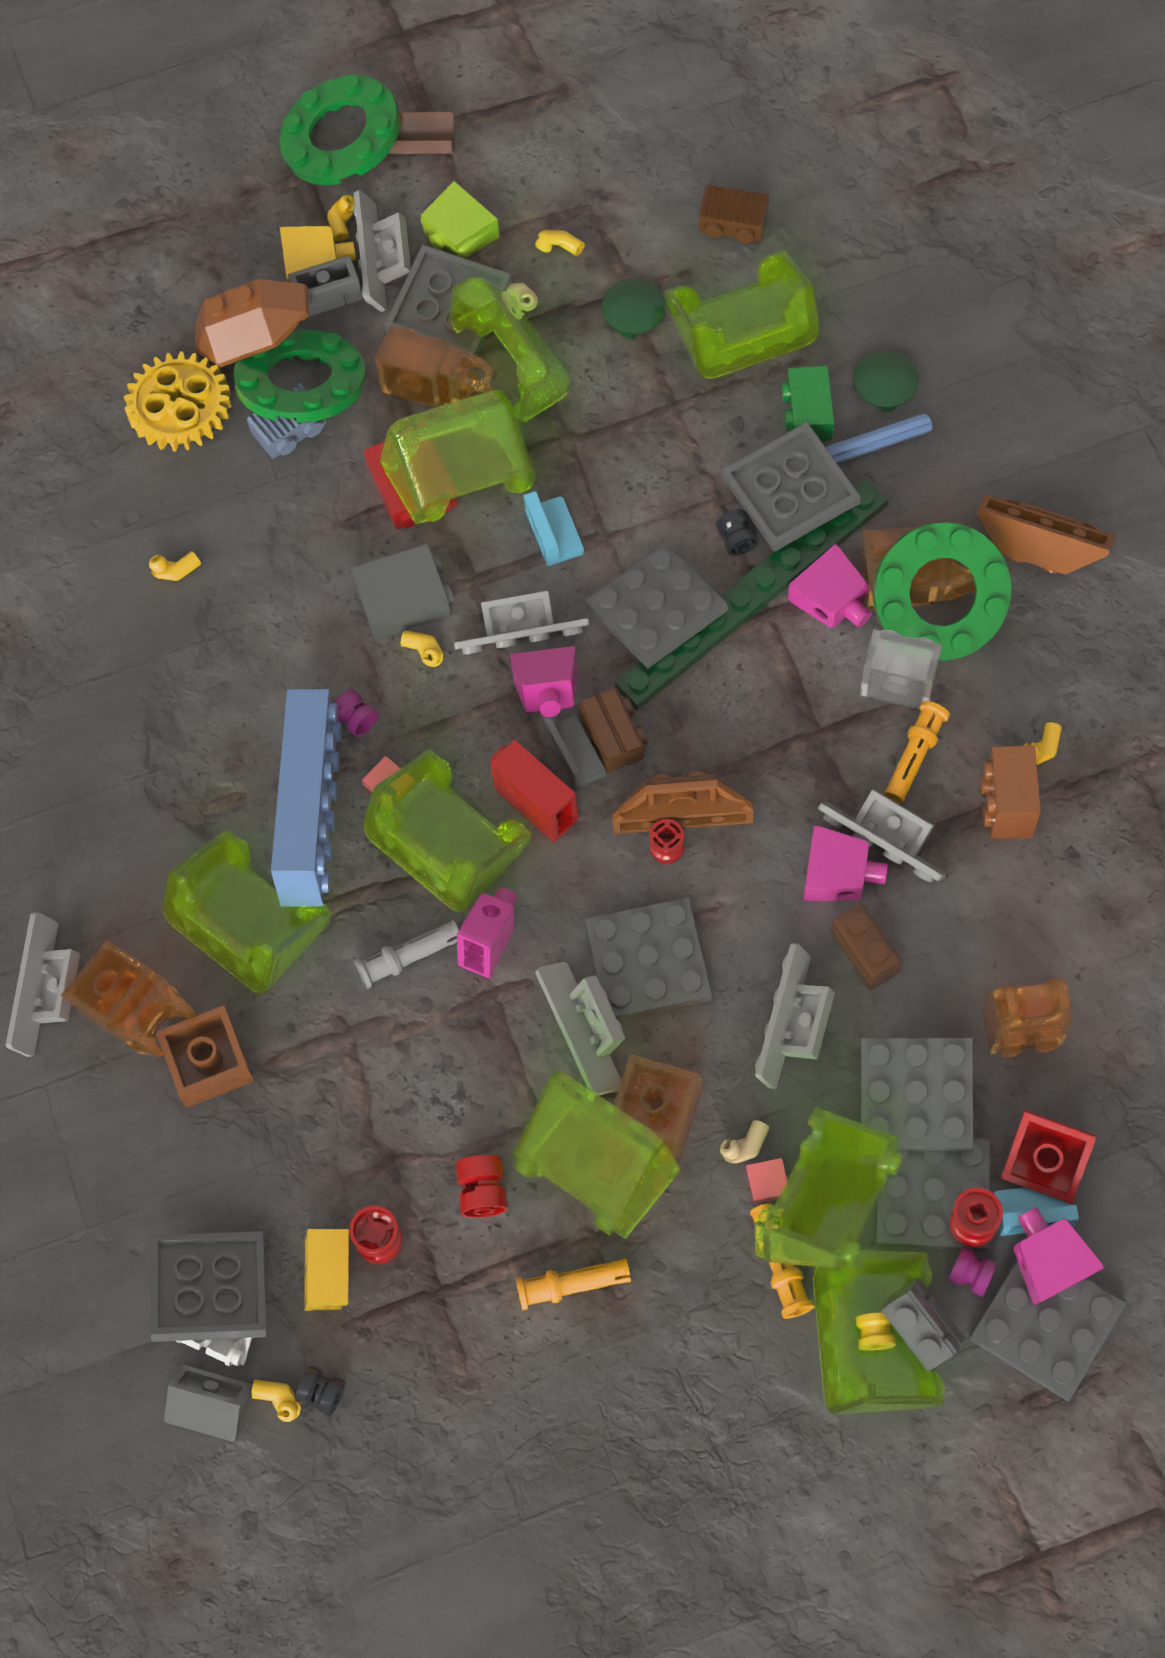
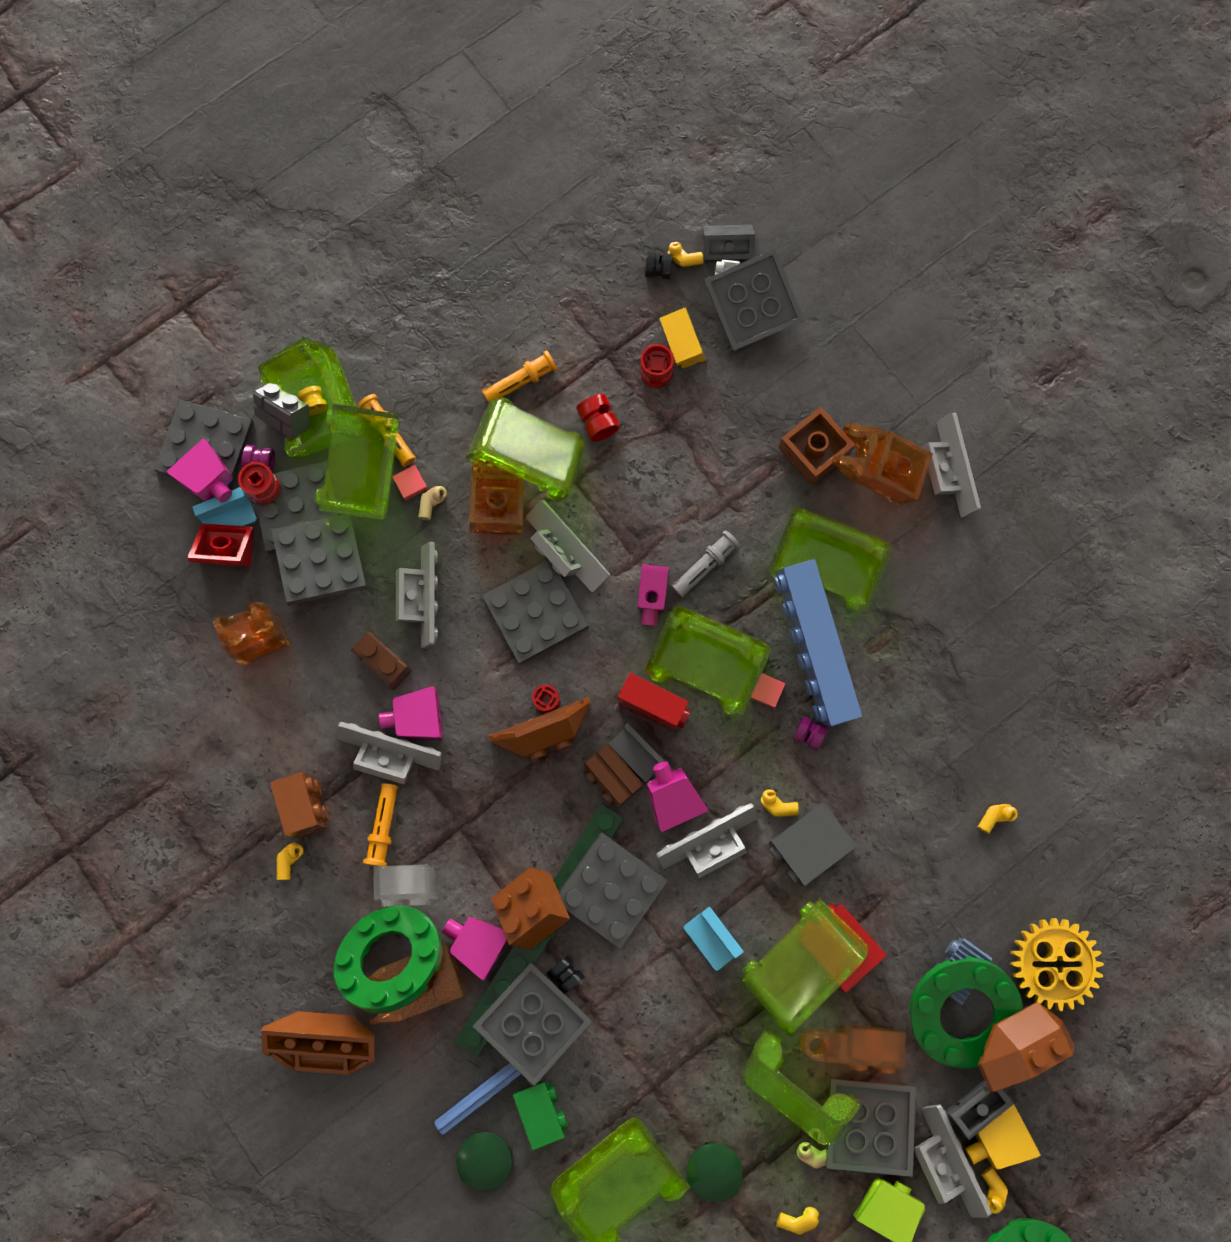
camera: 160 degrees right, 10 degrees up
(757, 598) = (530, 908): none -> dark orange brick

